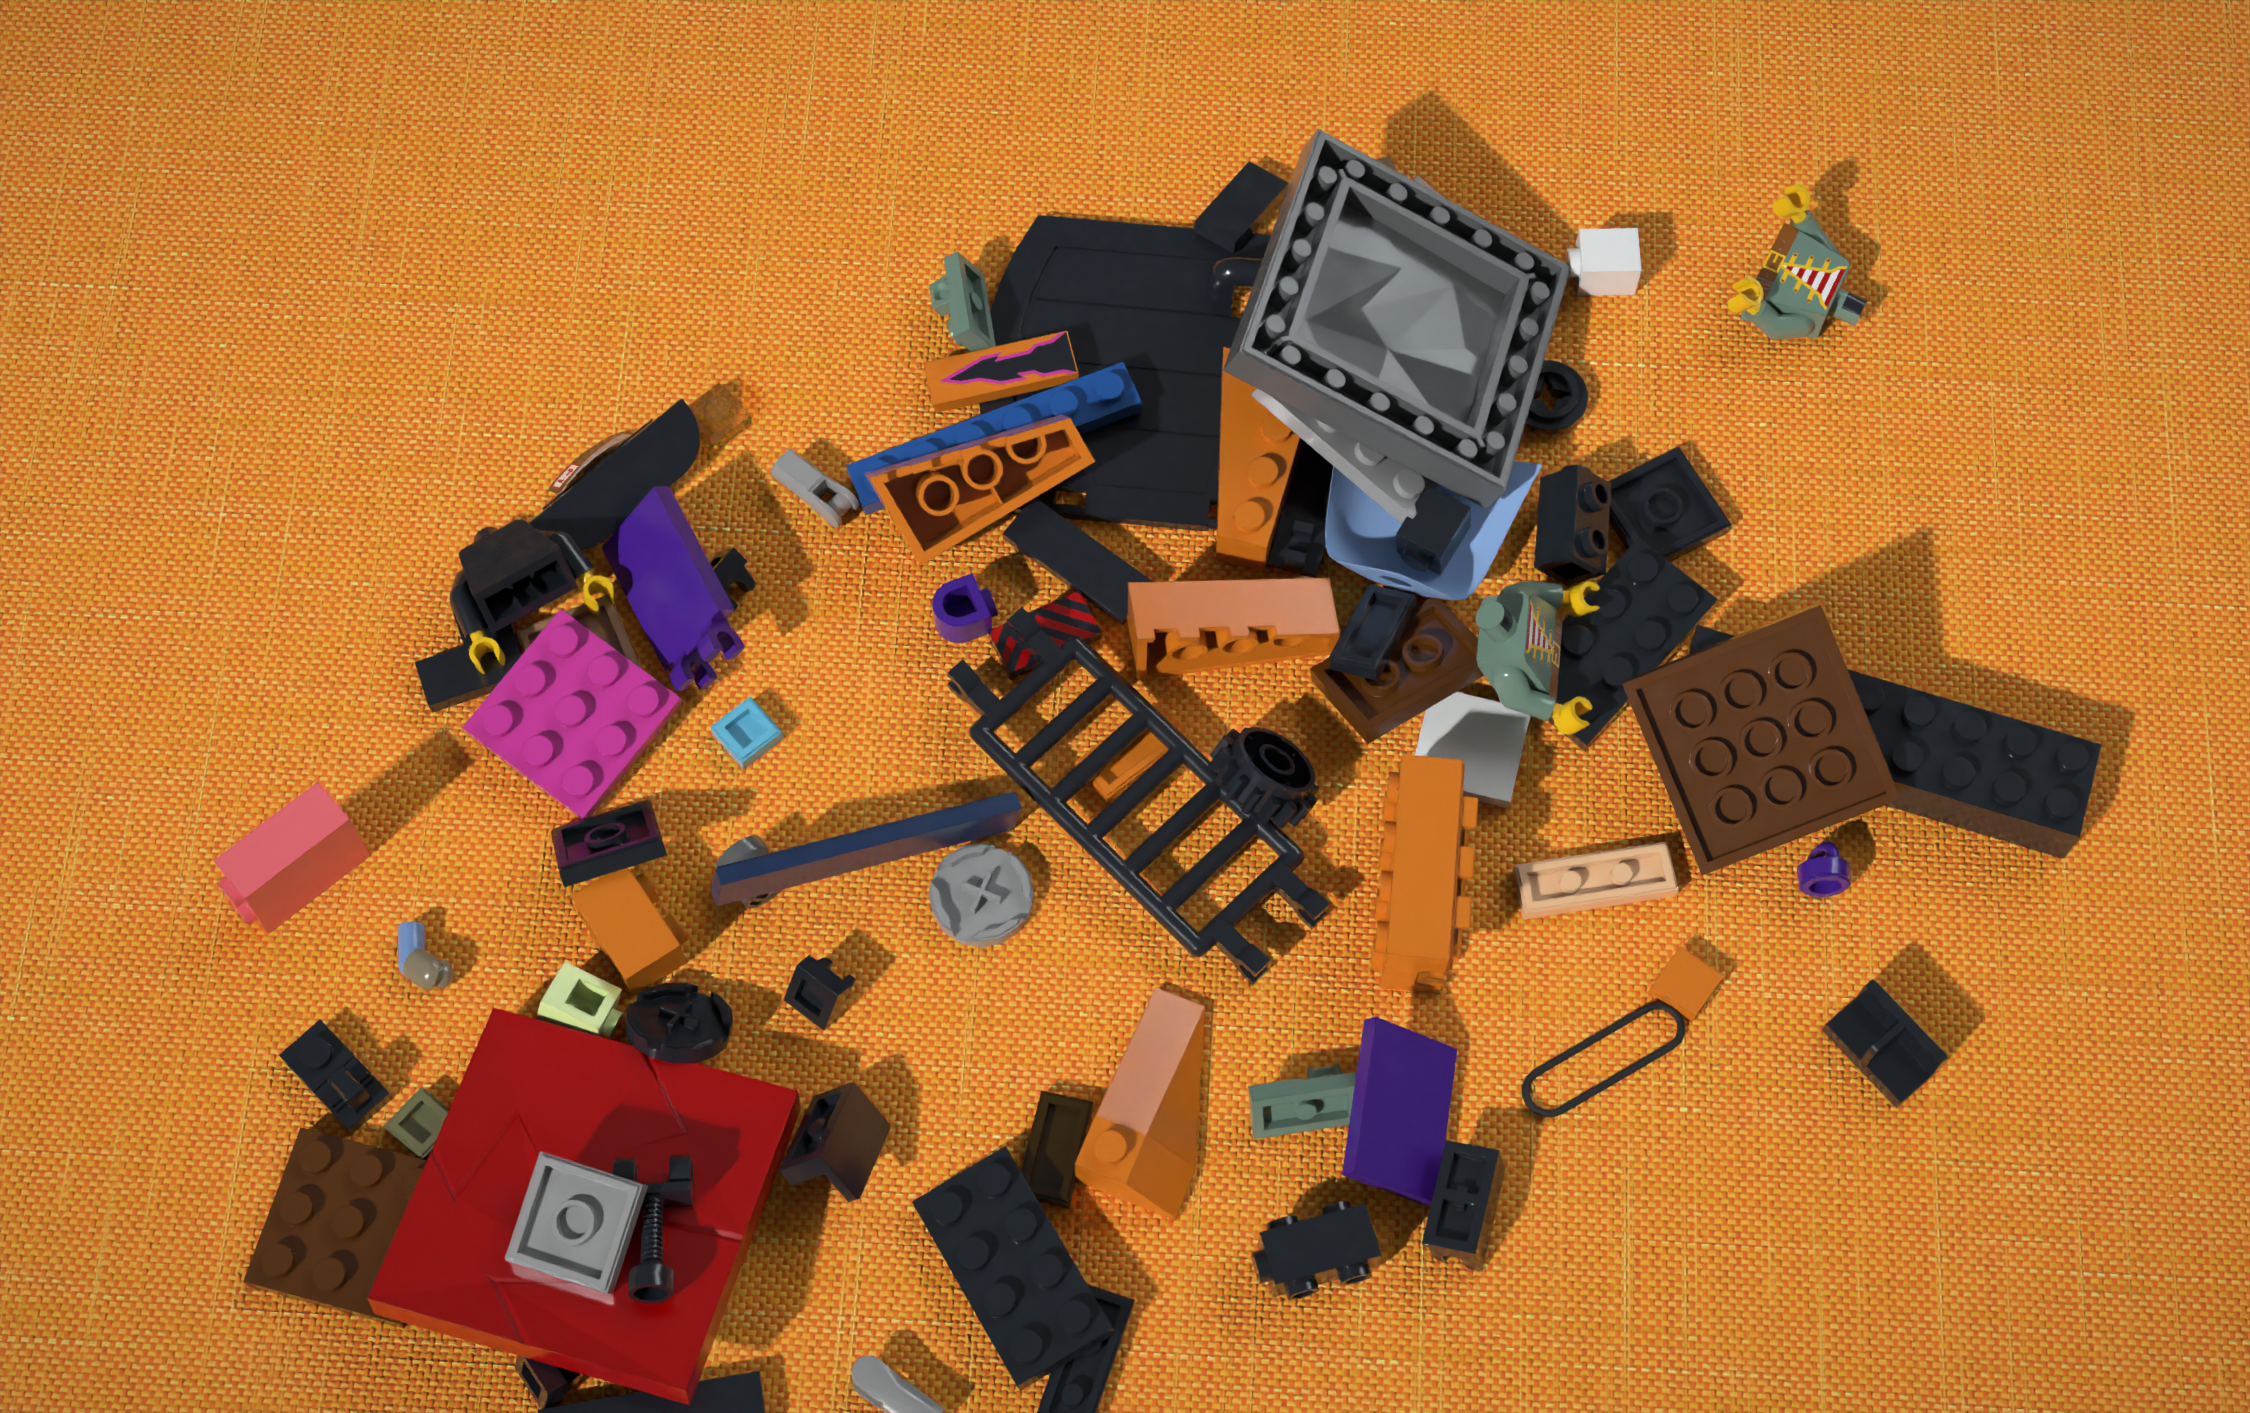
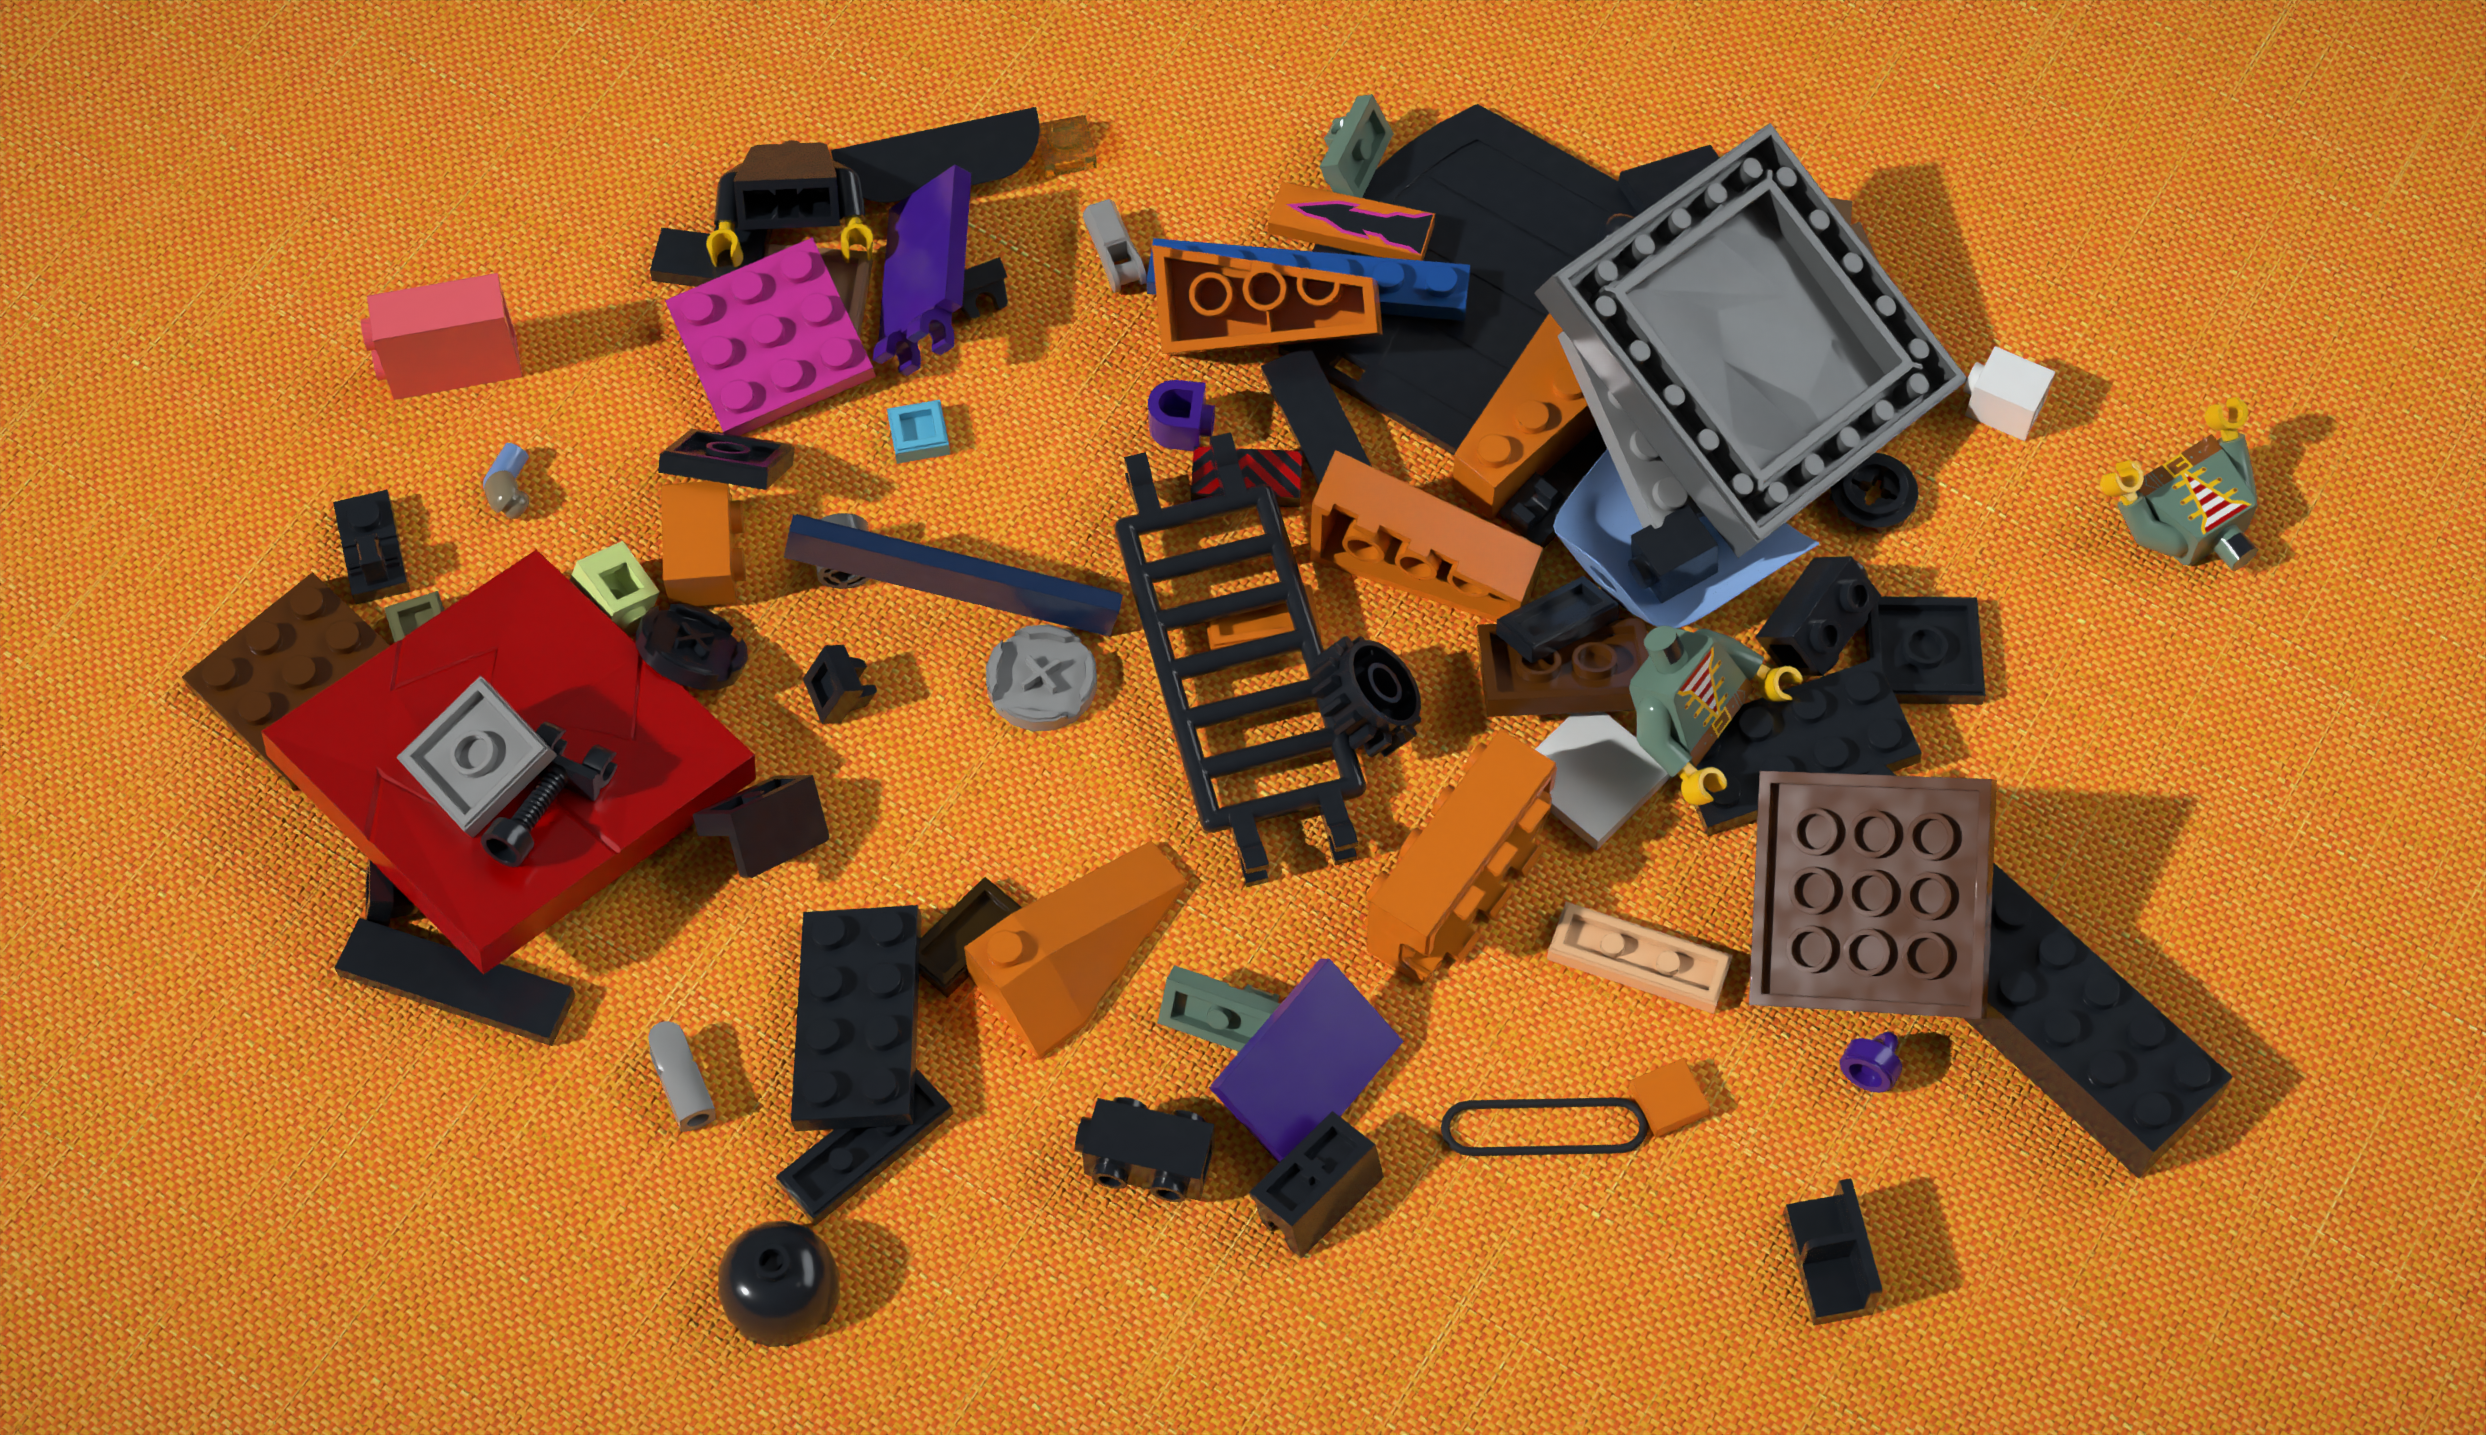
camera: 30 degrees right, 5 degrees down
(581, 461) = (920, 125): sticker -> none

